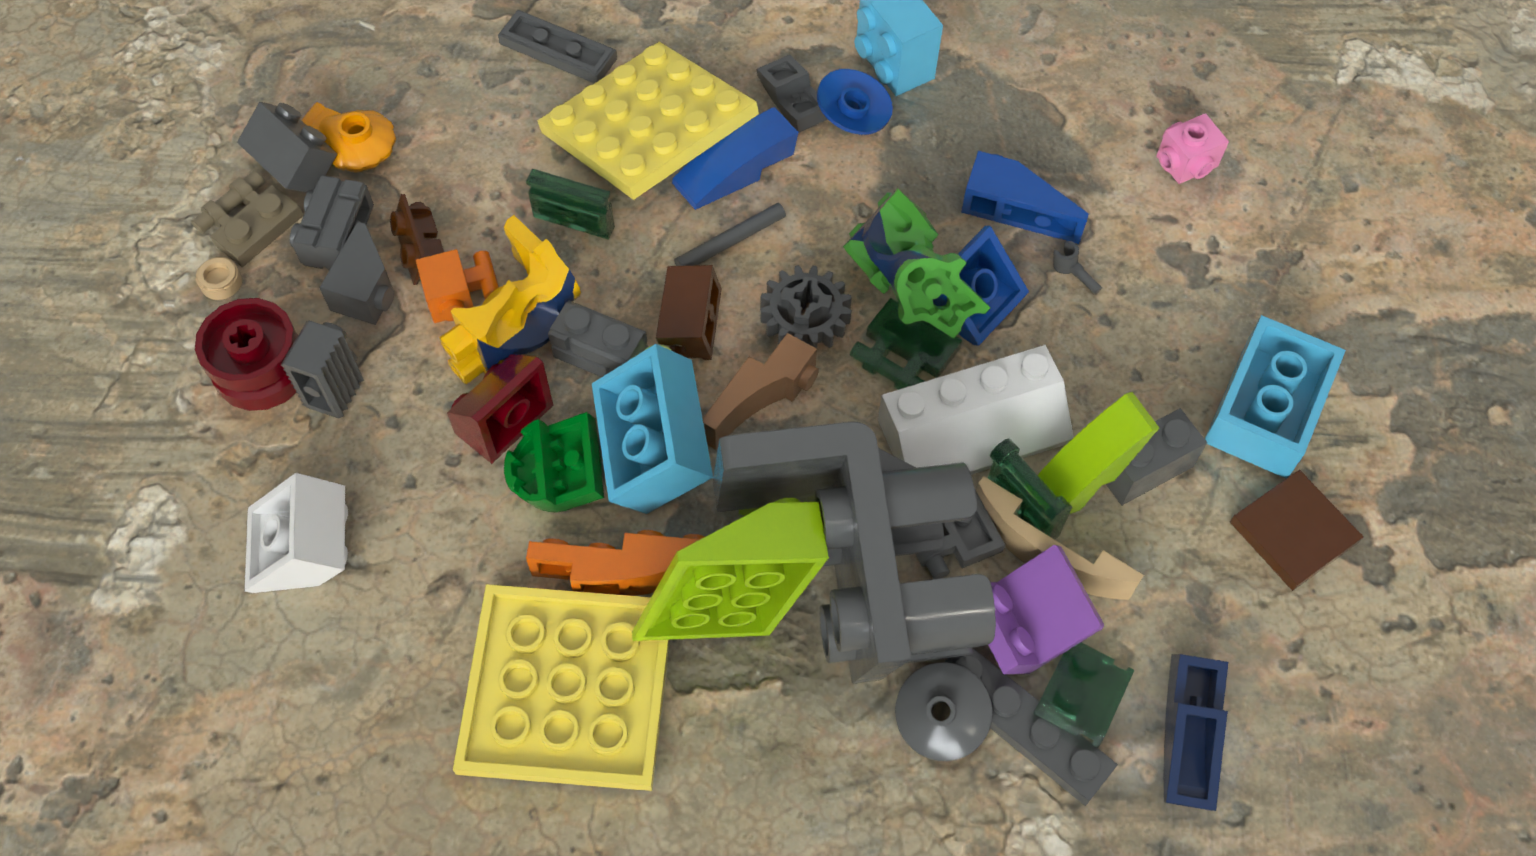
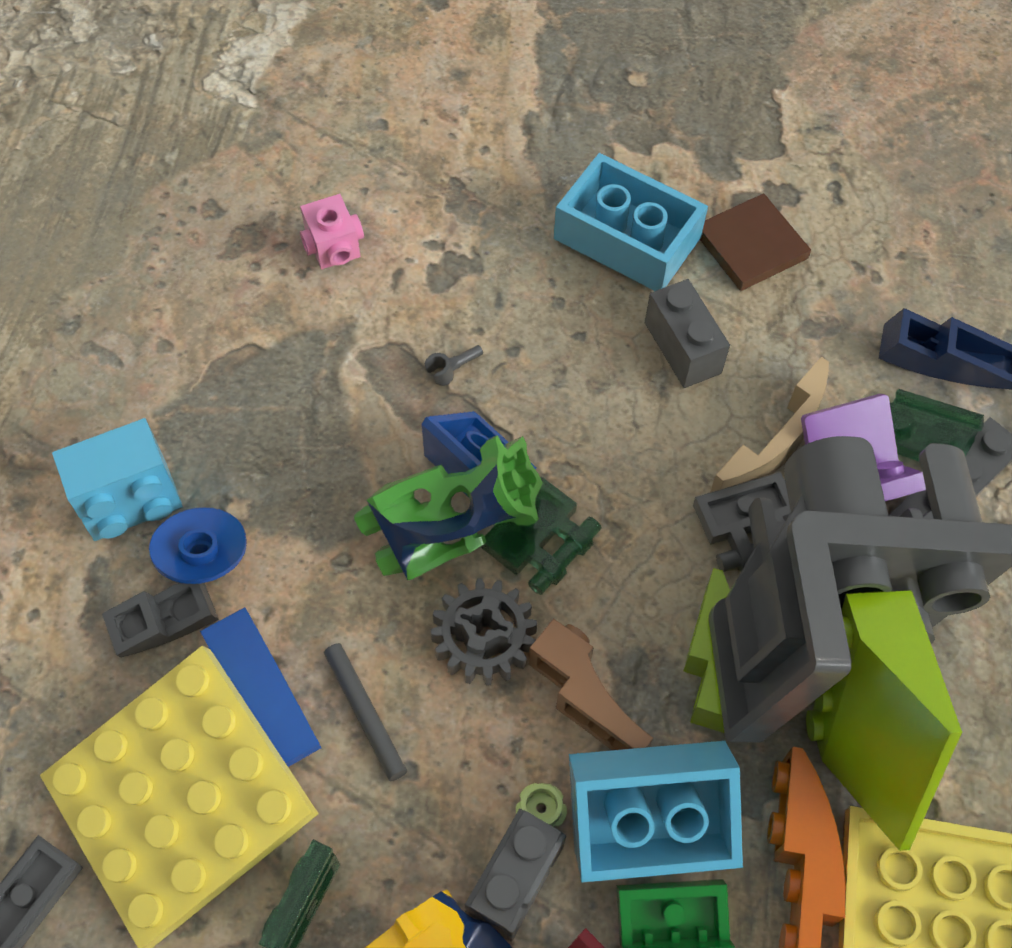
camera: 85 degrees left, 0 degrees up
(689, 310) = (473, 763): reddish brown hinge -> none
(977, 409) = (633, 481): white slope -> none
(1017, 197) = (359, 399): blue slope -> none
(1039, 504) = (713, 449): clear green plate -> none
(1099, 451) = (708, 369): lime slope -> none

